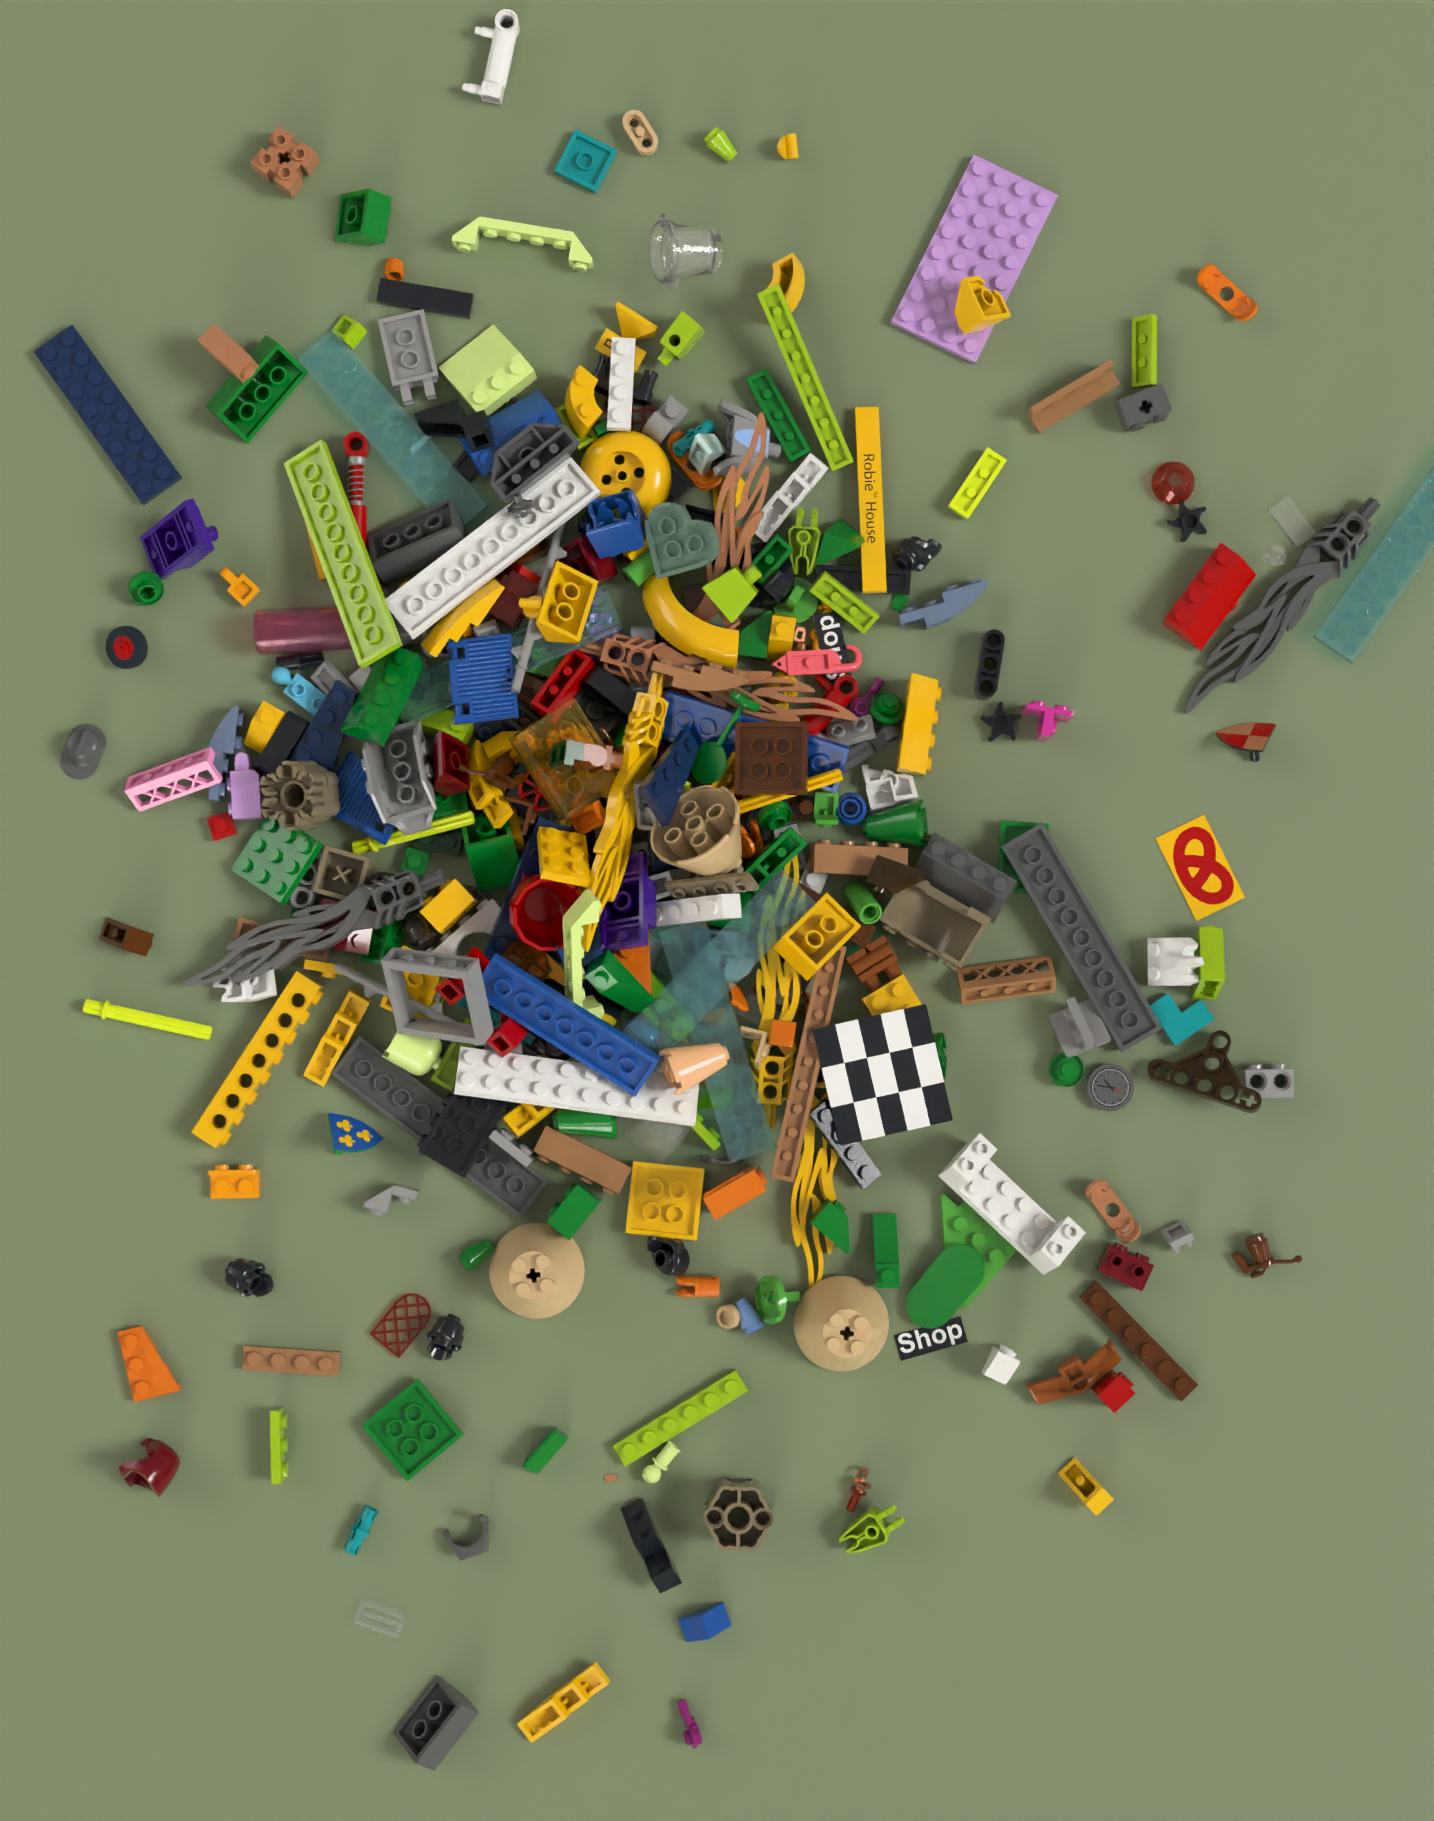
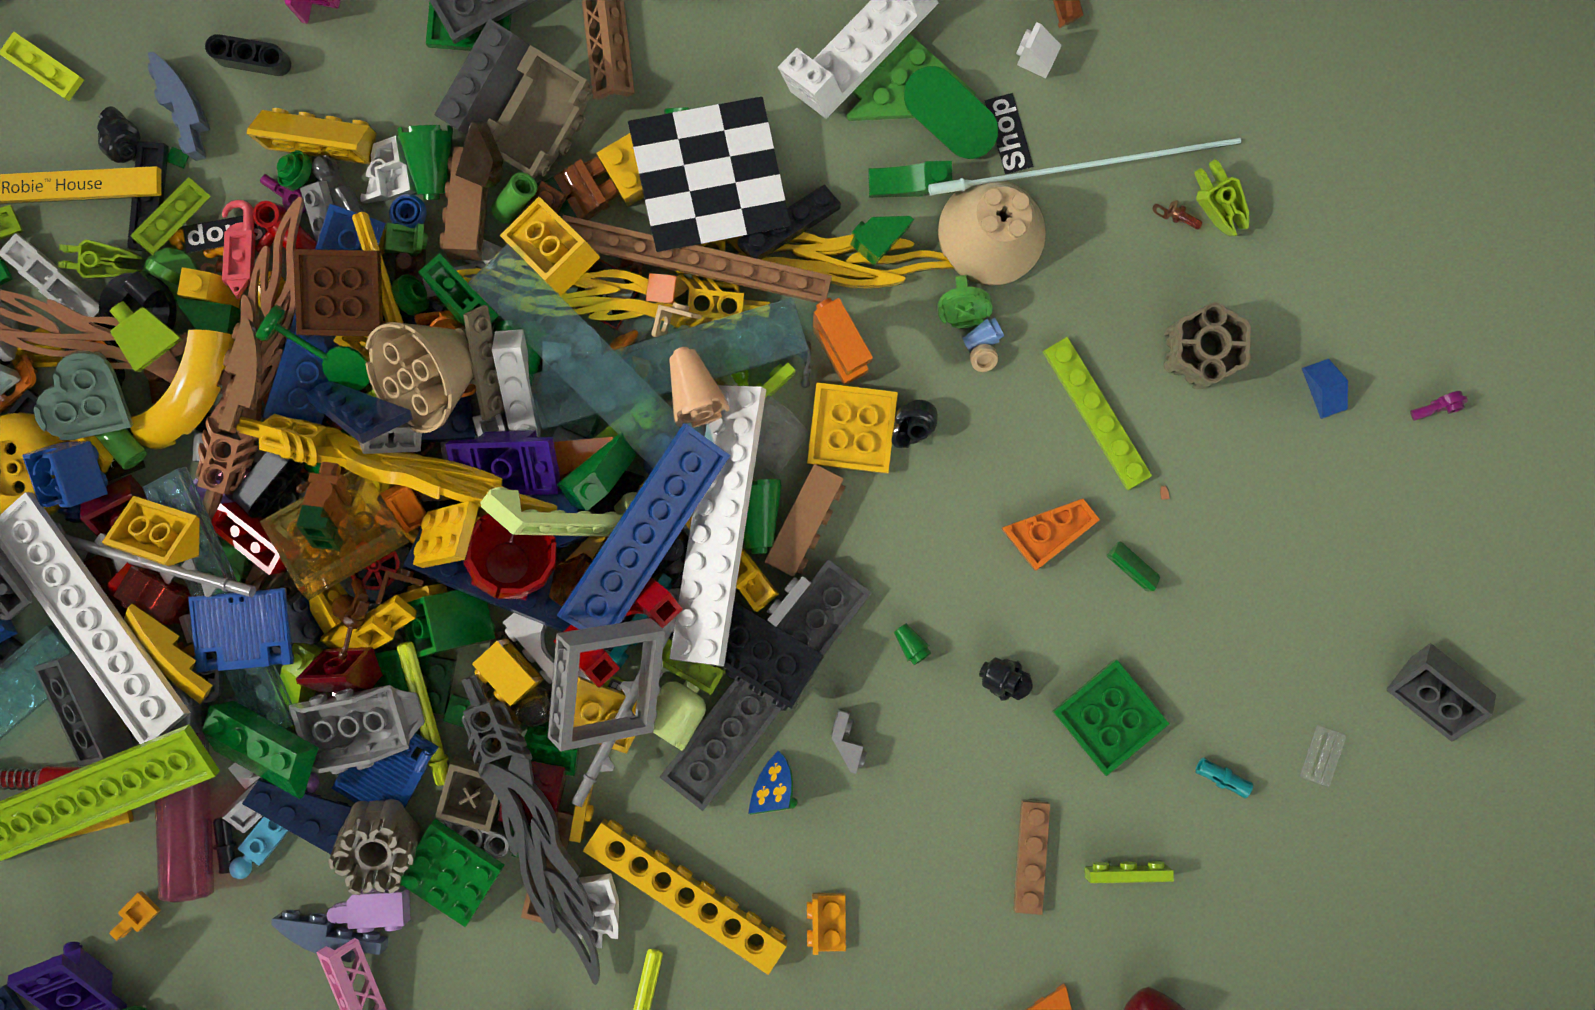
camera: 90 degrees left, 0 degrees up
(222, 826) = (416, 937): red plate -> none
(248, 1278) = (937, 907): black head -> none
(263, 726) = (300, 886): yellow slope -> none
(281, 743) = (313, 865): black beam -> none
(337, 1037) = (662, 803): yellow slope -> none
(394, 1307) = (1013, 748): clear red window -> none
(477, 1548) = (1245, 643): dark grey helmet -> none
(520, 507) = (36, 584): dark grey plant -> none
(531, 606) = (154, 572): yellow plate -> none
(548, 1252) = (905, 569): tan cone -> none
(563, 1702) = (1416, 548): yellow slope -> none
(574, 1210) = (862, 531): green brick -> none
(575, 1377) = (1050, 532): none -> orange wing
(650, 1546) = (1241, 447): black arch -> none
(652, 1473) = (1158, 445): yellowish green pin -> none
(703, 1287) = (949, 385): orange hinge -> none
(772, 557) = (109, 292): green slope -> none
(838, 541) = (100, 223): green slope -> none
(878, 1296) = (962, 184): none -> light aqua piece
(1001, 723) = (316, 44): black animal -> none

